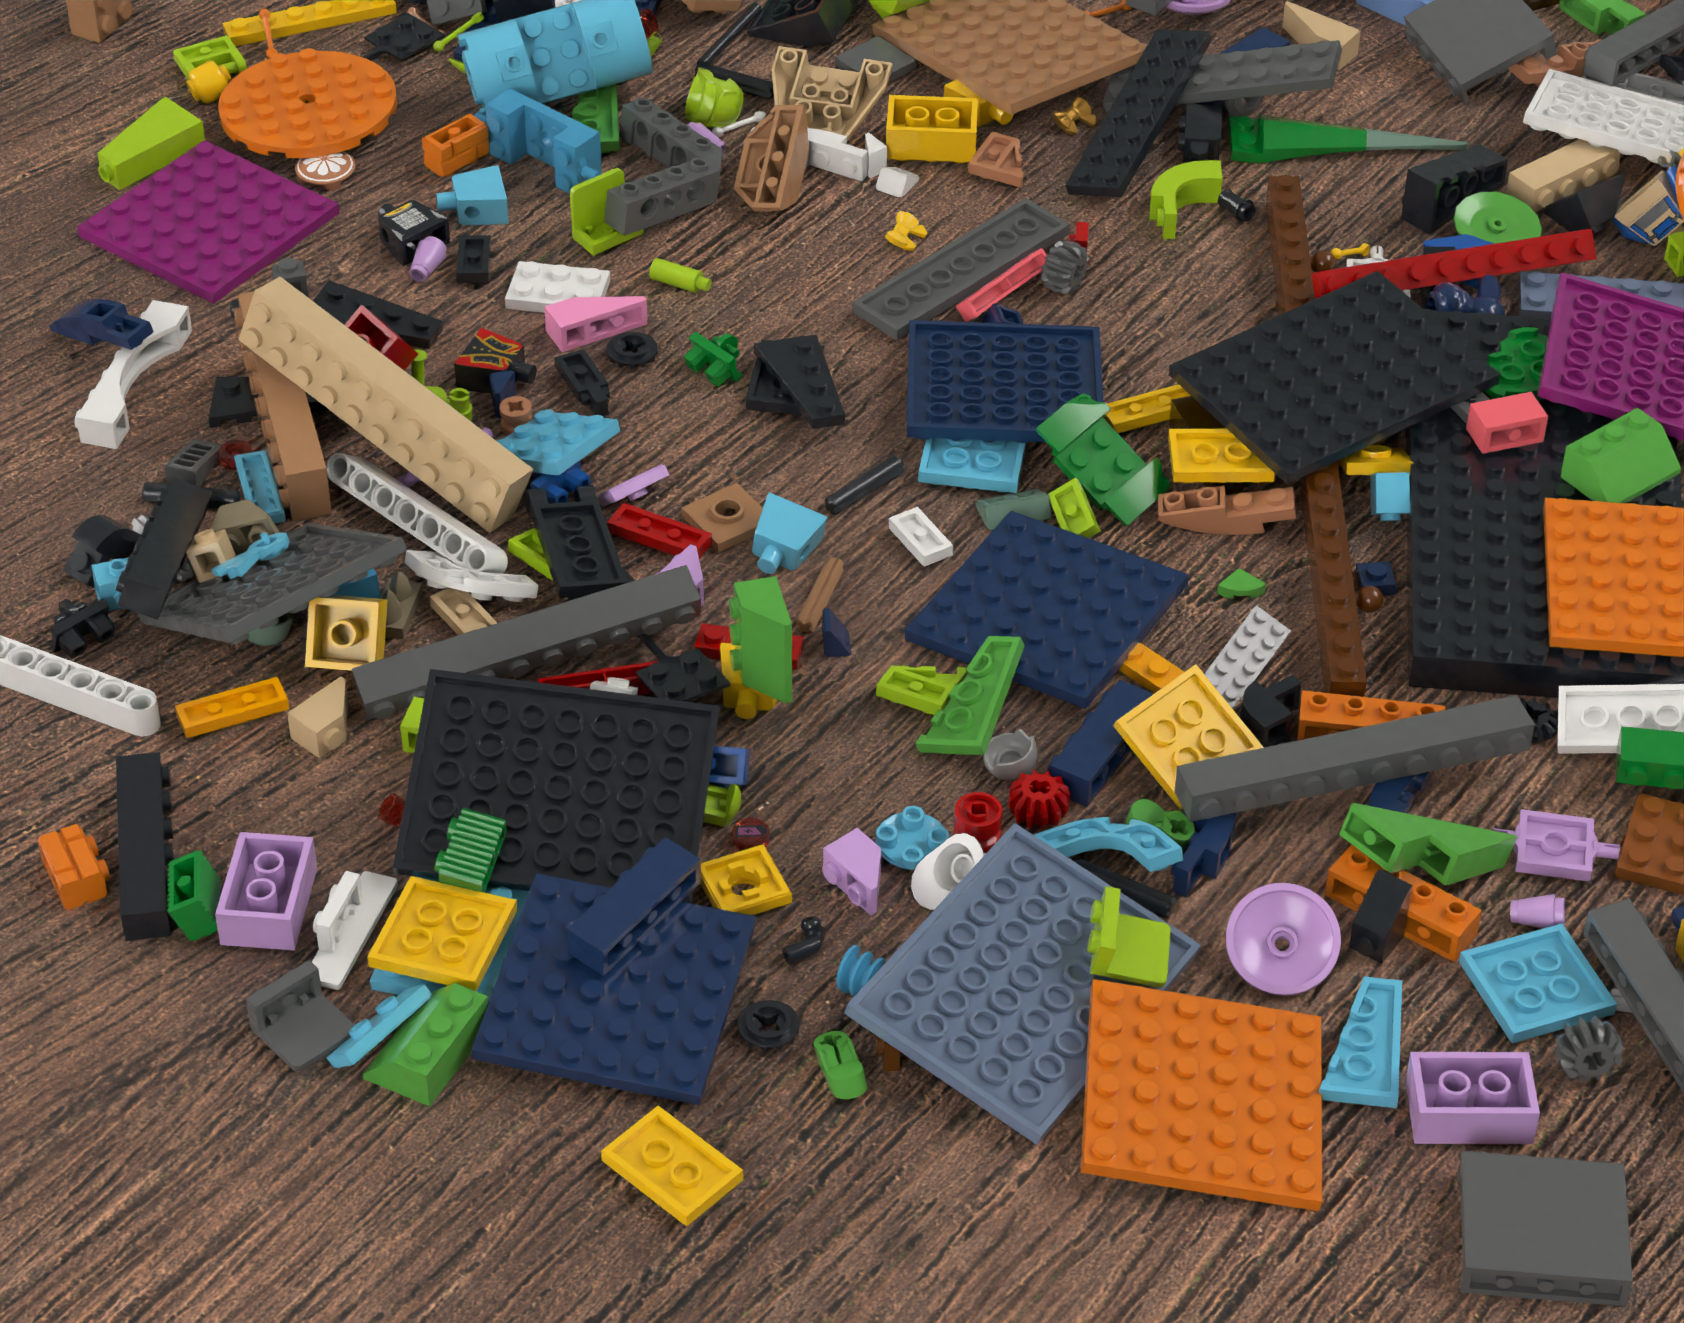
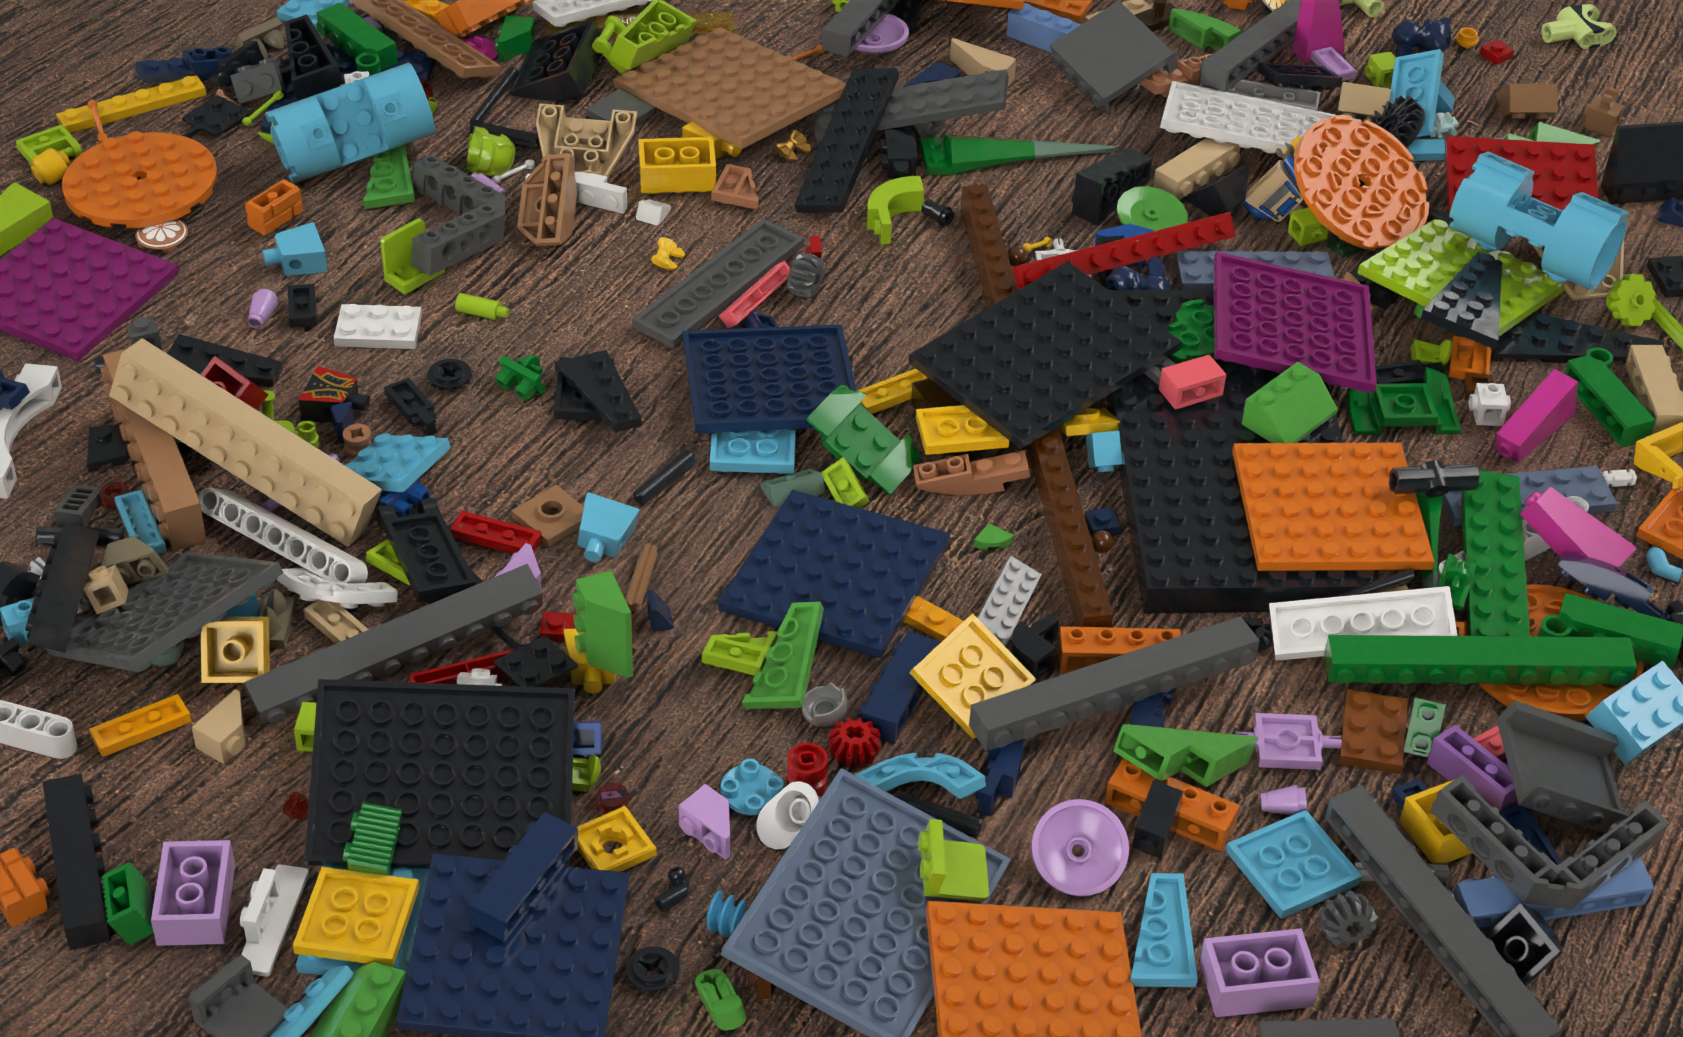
camera: 10 degrees left, 0 degrees up
(263, 549) = (151, 580): medium azure piece -> none
(407, 225) = (241, 280): black torso -> none
(528, 127) = (333, 187): dark azure brick -> none
(591, 319) = (409, 351): bright pink slope -> none
(633, 487) = (468, 495): lavender plate -> none
(876, 155) = (634, 190): white slope -> none
(920, 536) = (719, 518): white plate -> none
(1172, 823) = (969, 752): bright green piece -> none

